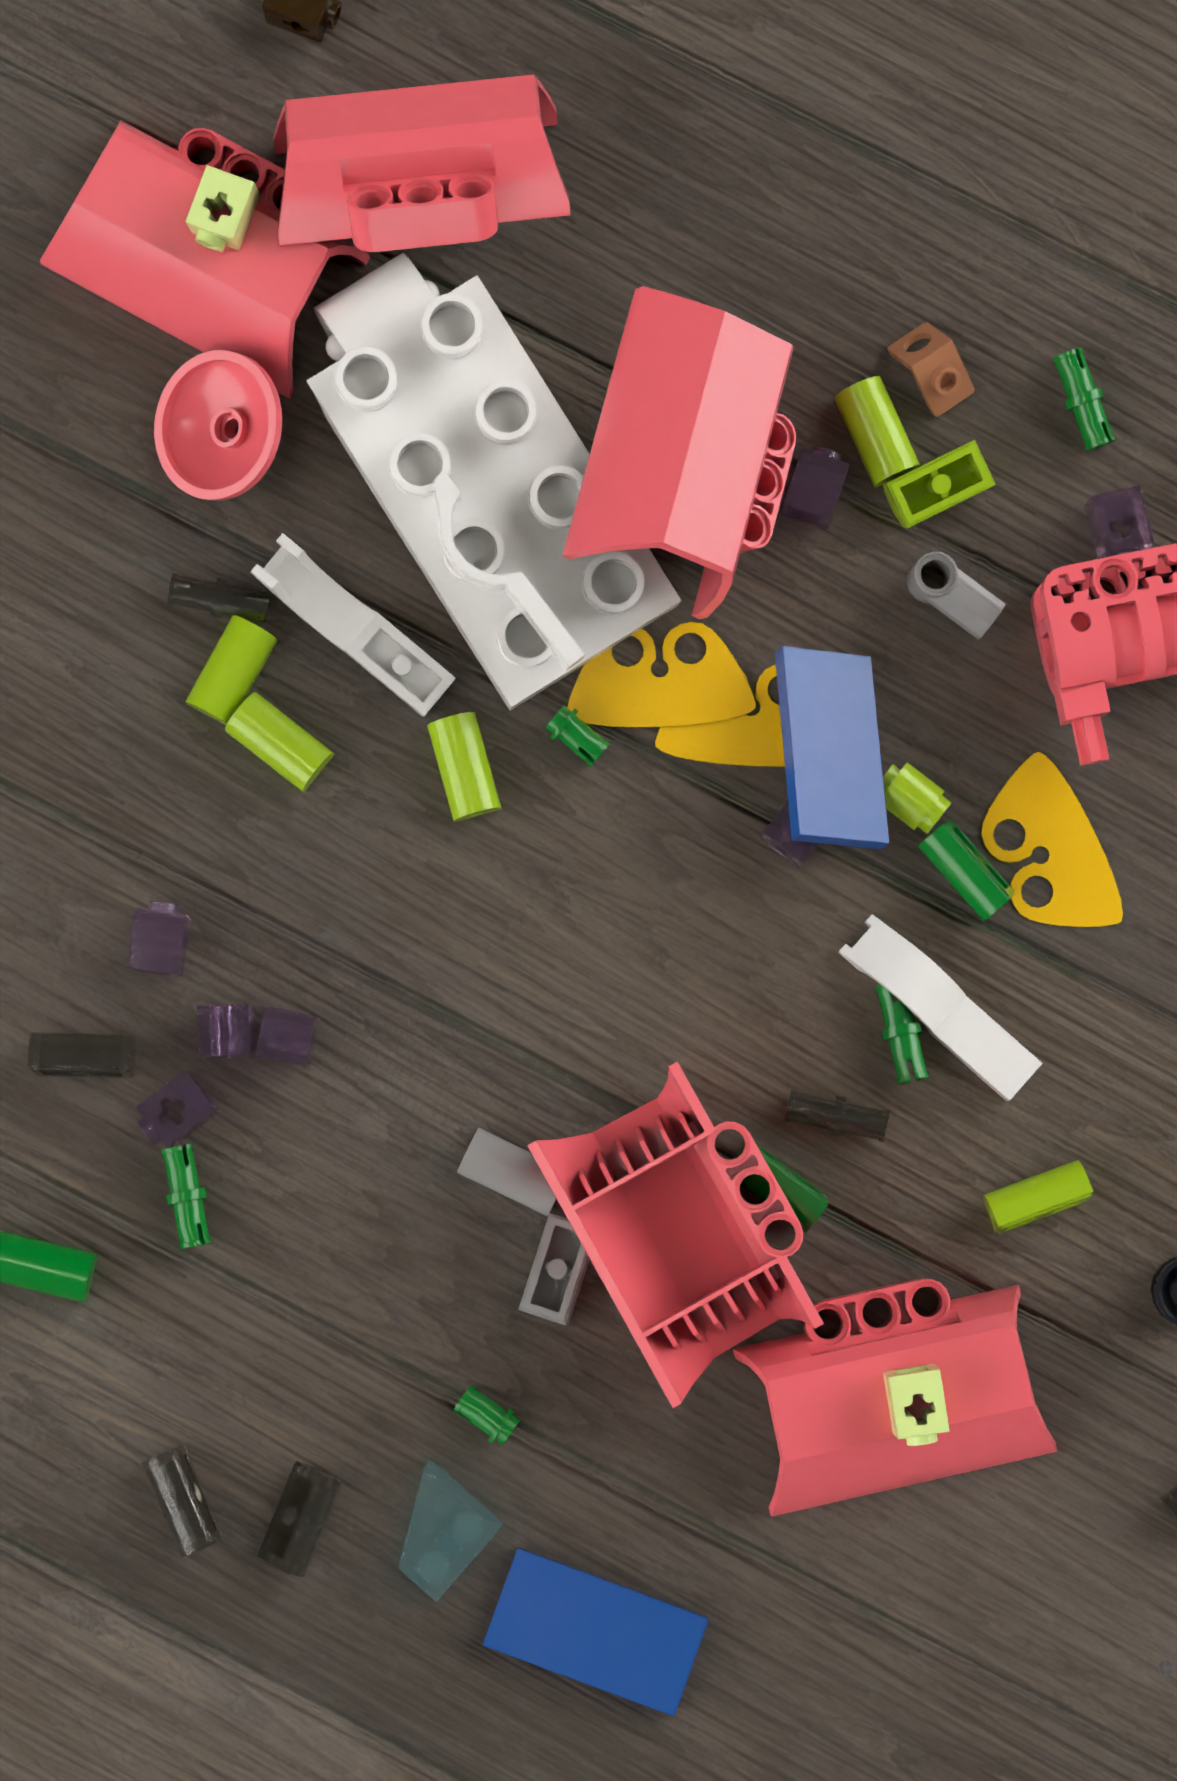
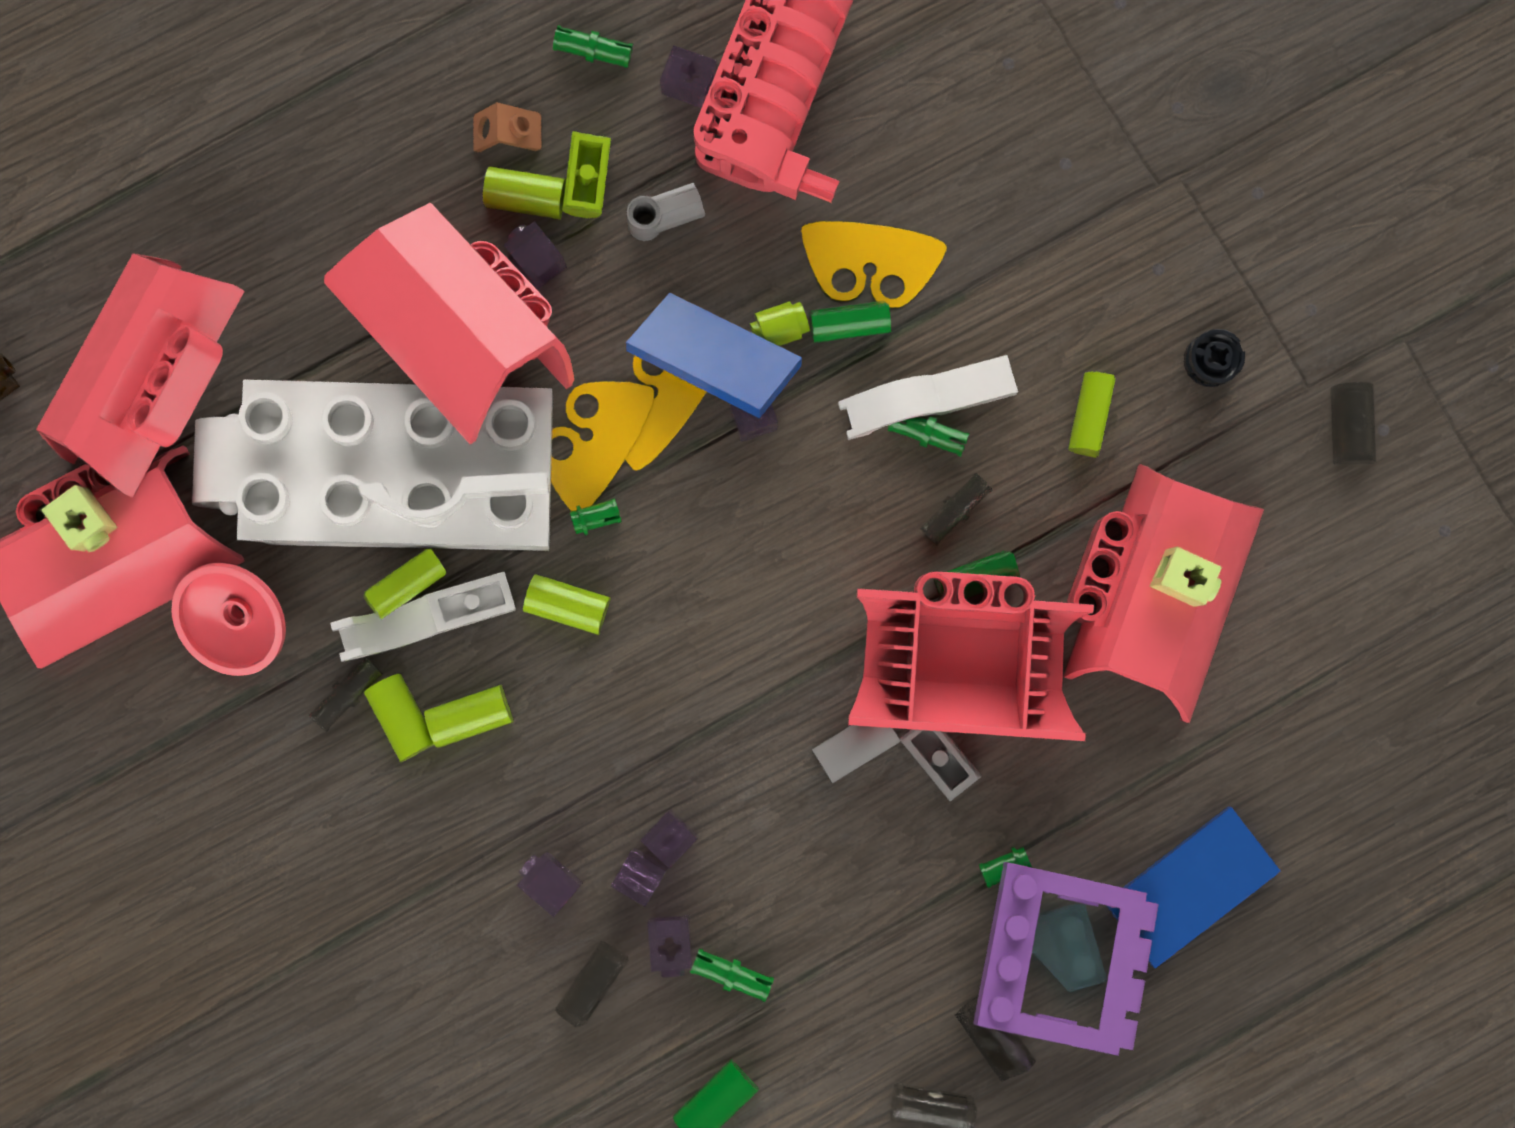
camera: 55 degrees left, 0 degrees up
(374, 582) = (404, 583): none -> lime brick
(403, 1473) = (1011, 951): none -> medium lavender hinge

